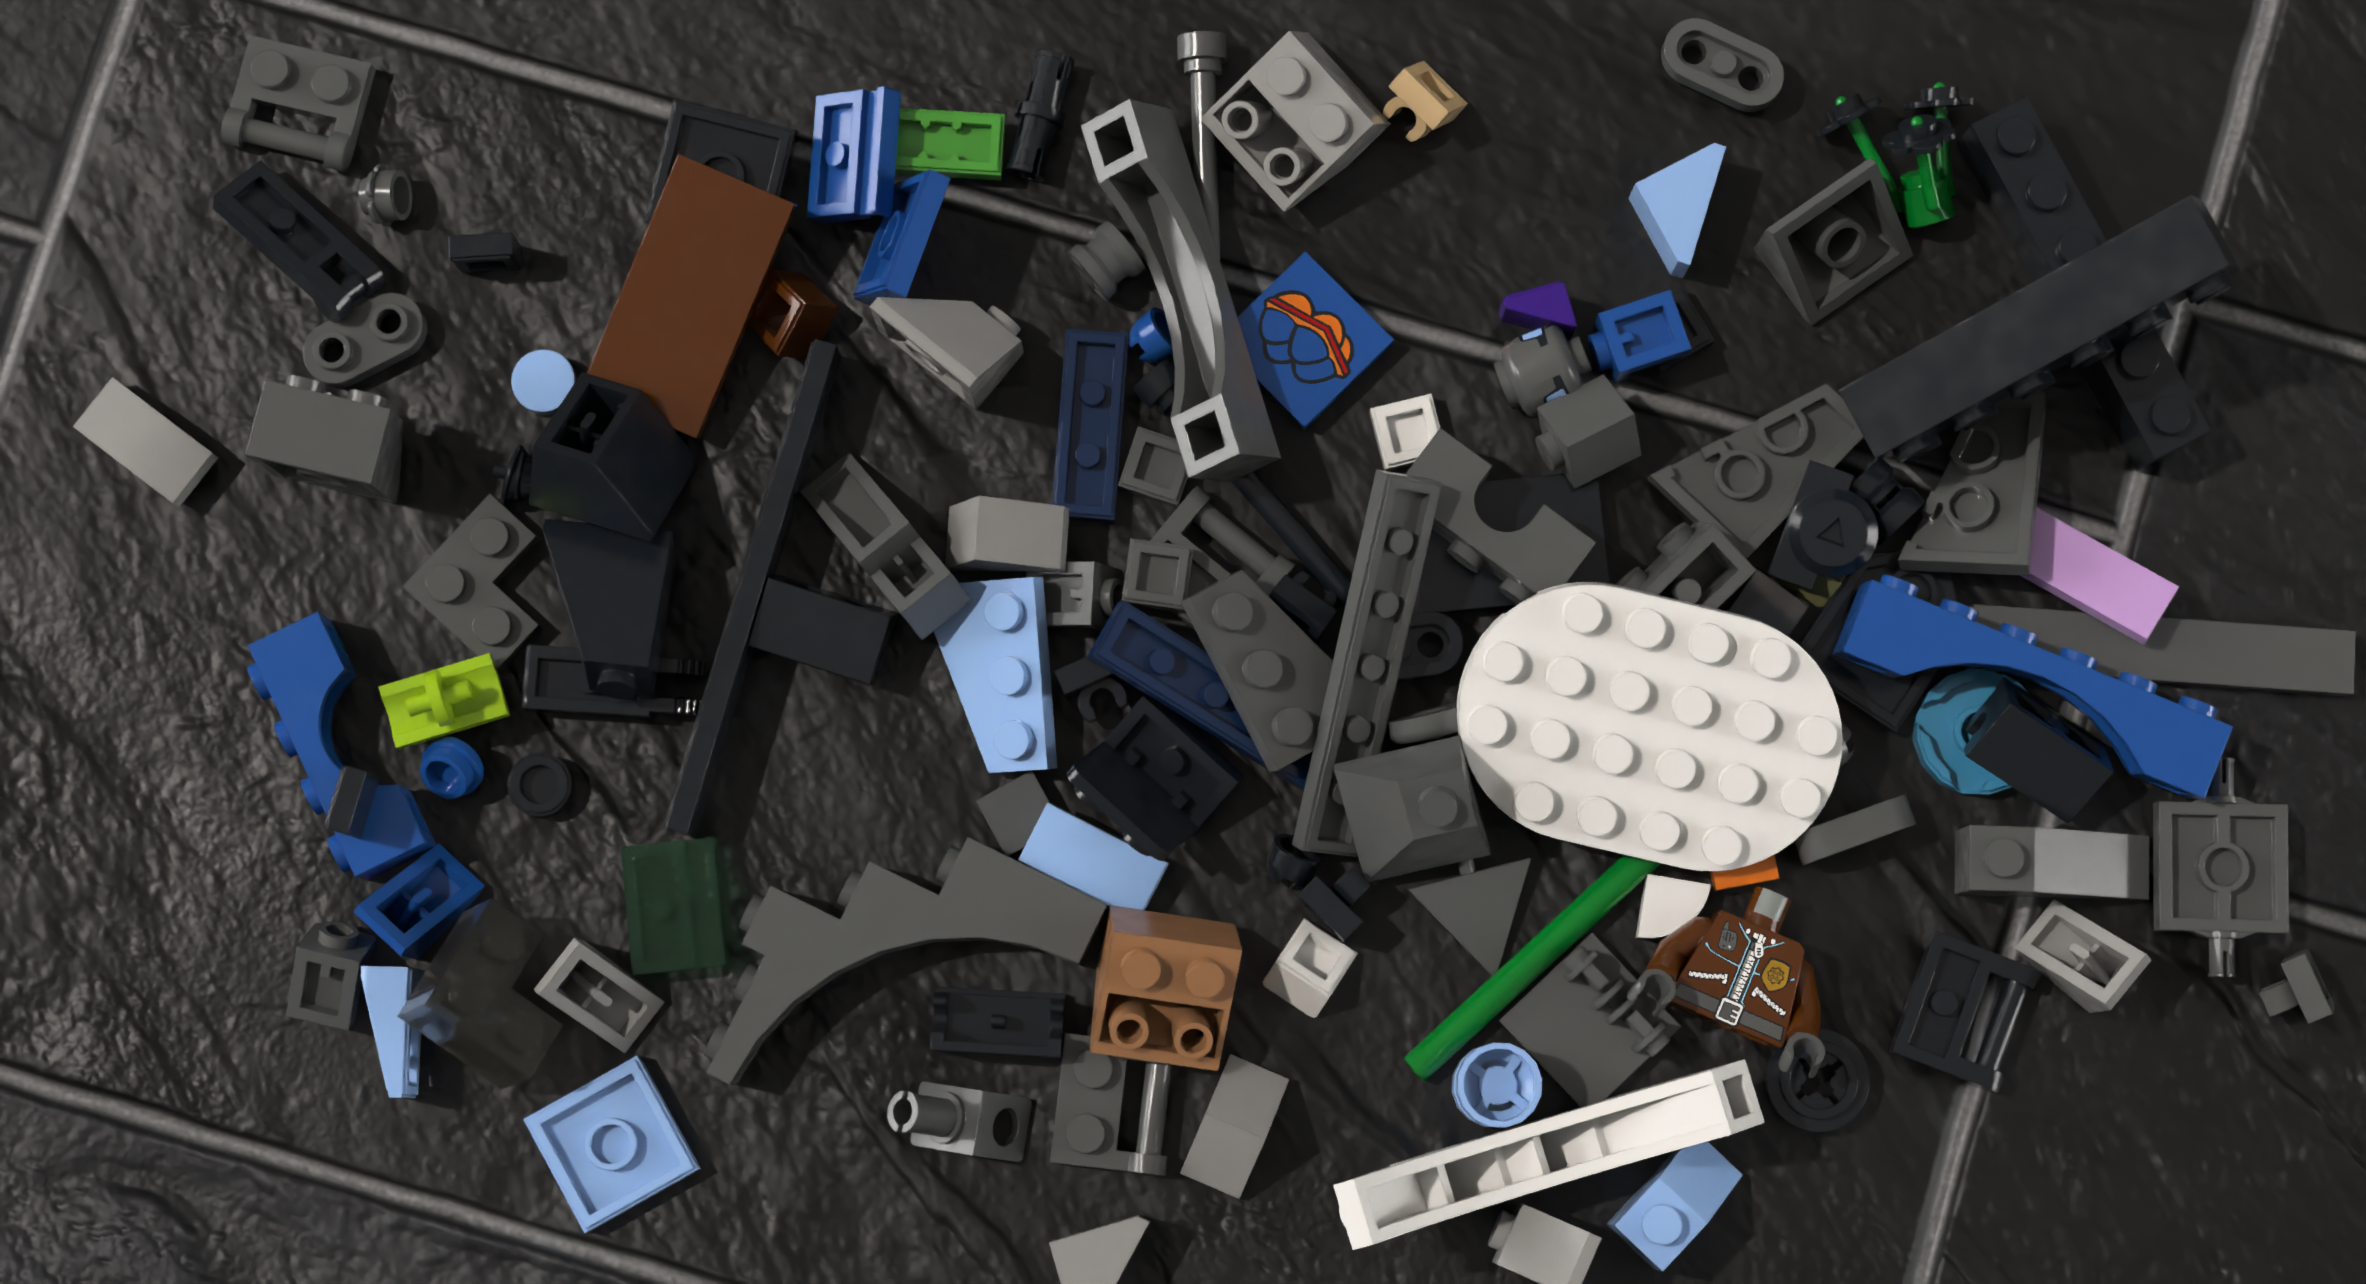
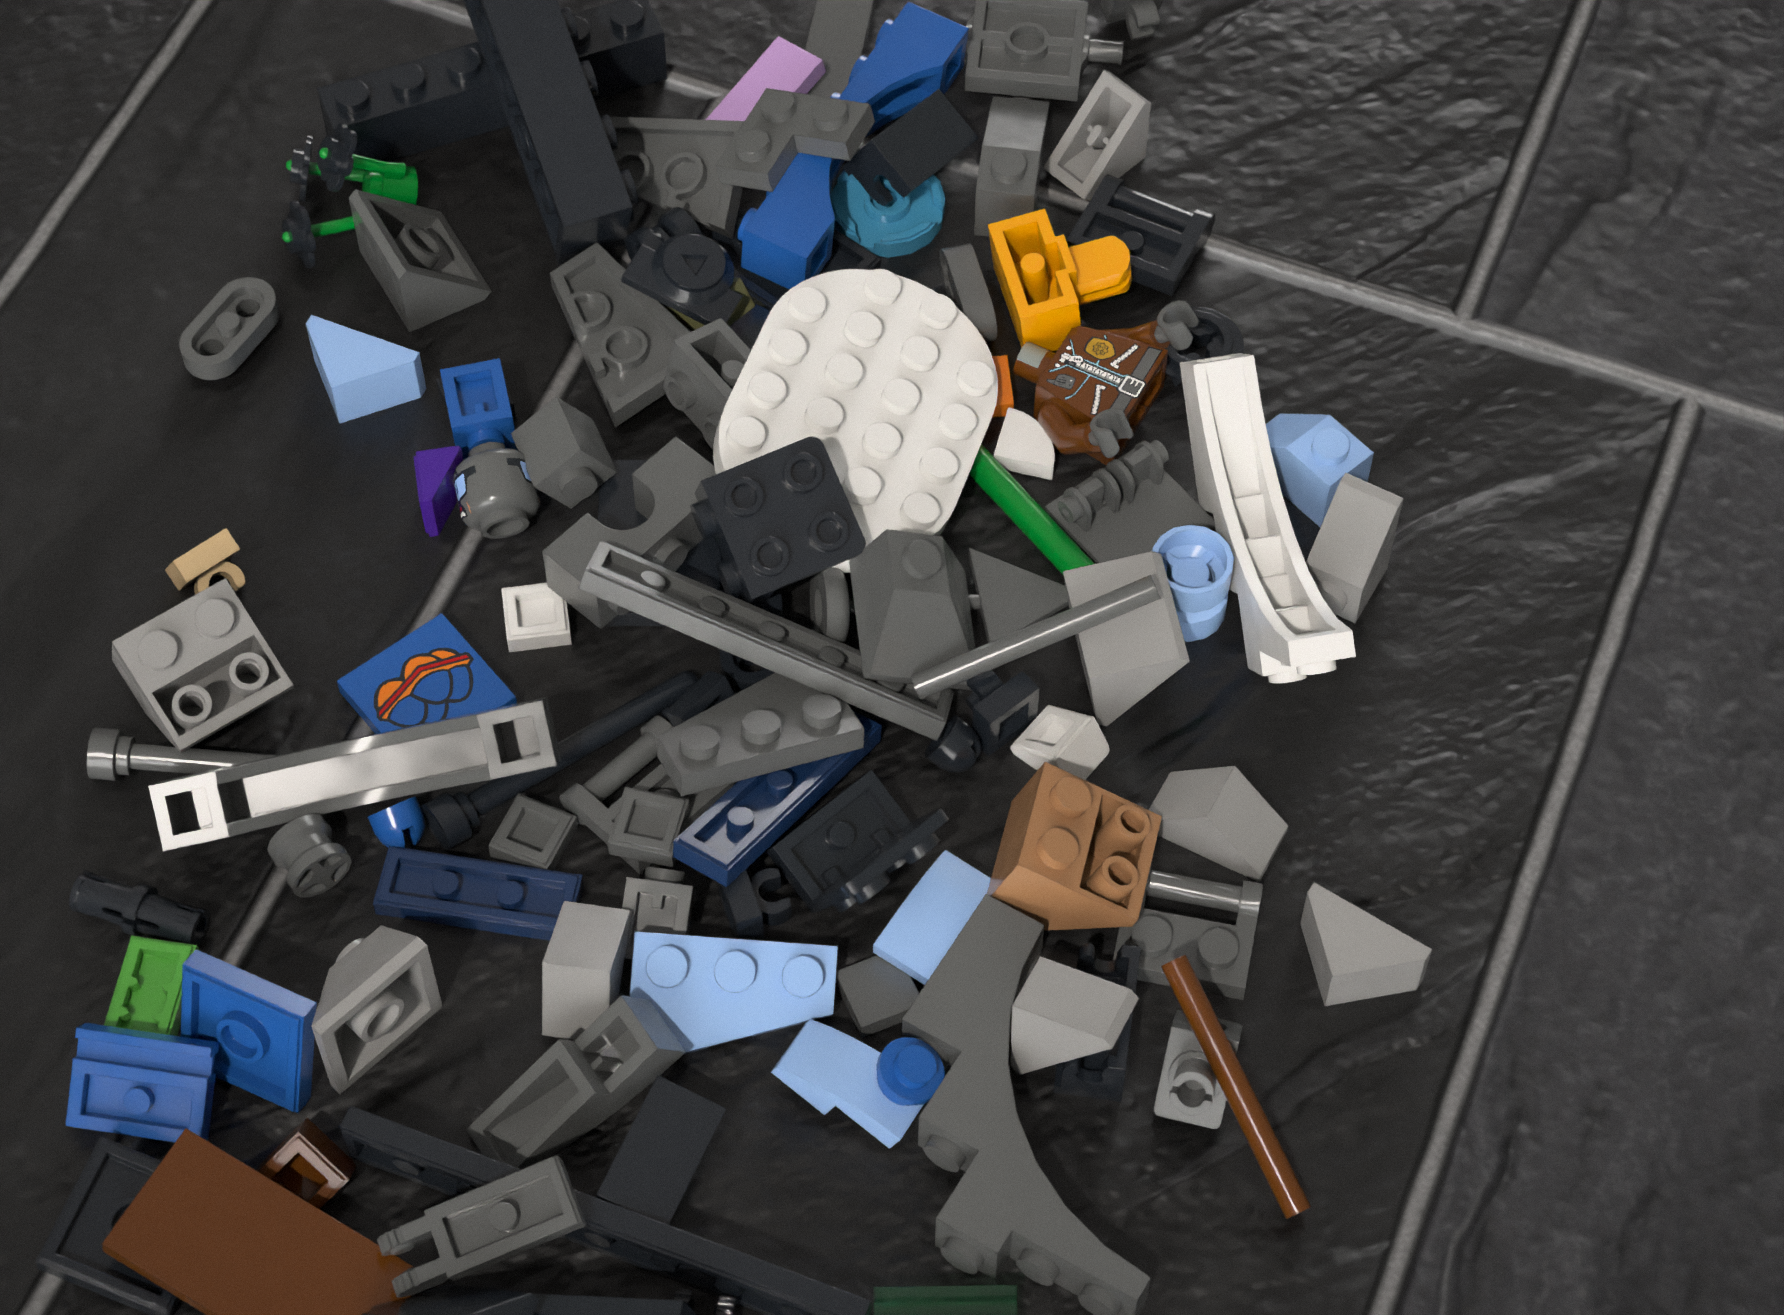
camera: 85 degrees left, 25 degrees down
(723, 487) = (487, 1225): none -> dark grey hinge
(917, 797) = (841, 1072): none -> light blue slope
(918, 849) = (909, 1071): none -> blue plate
(930, 1153) = (1236, 1086): none -> reddish brown bar
(975, 994) = (1065, 1016): none -> light grey slope
(1384, 931) = (1035, 637): none -> dark grey bar
(1416, 1019) = (1133, 651): none -> light grey slope
(1482, 658) = (777, 520): none -> black bracket
(1868, 914) = (1049, 280): none -> light orange brick
(2018, 605) = (789, 125): none -> dark grey plate

